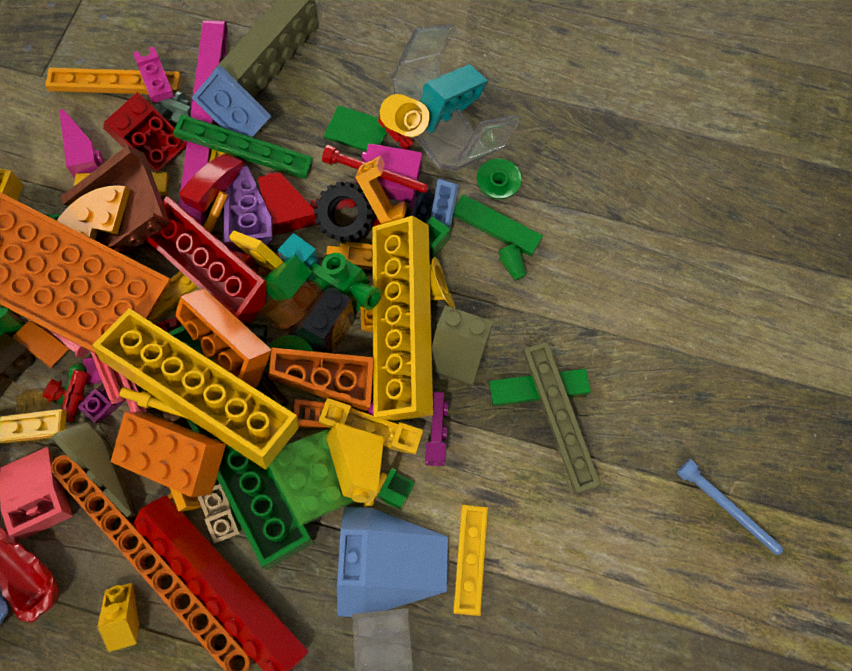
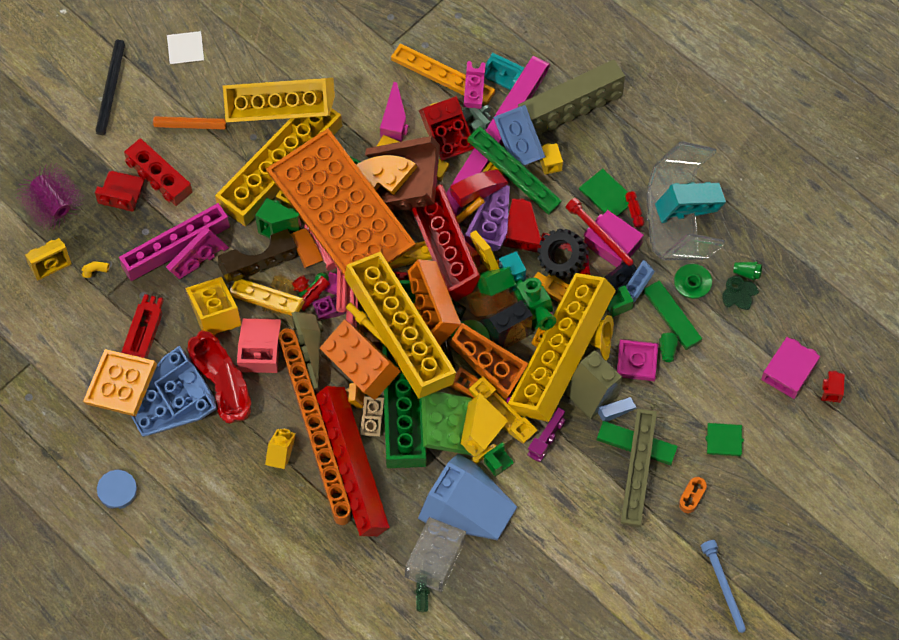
camera: 30 degrees right, 5 degrees down
(178, 50) = (502, 71): none -> teal hinge
(281, 118) = (553, 161): none -> yellow brick
(368, 181) = (590, 250): light orange panel -> none
(404, 115) = (645, 201): yellow piece -> none
(470, 560) = (524, 529): yellow tile -> none
(487, 292) = (637, 360): none -> dark pink tile
(495, 360) = (616, 409): none -> medium blue piece
(547, 141) = (748, 269): none -> green cone
(553, 172) = (739, 296): none -> clear green plate
(627, 417) = (689, 493): none -> orange beam
(628, 335) = (724, 439): none -> green piece
(652, 223) = (790, 367): none -> dark pink brick
(707, 222) = (833, 387): none -> red brick

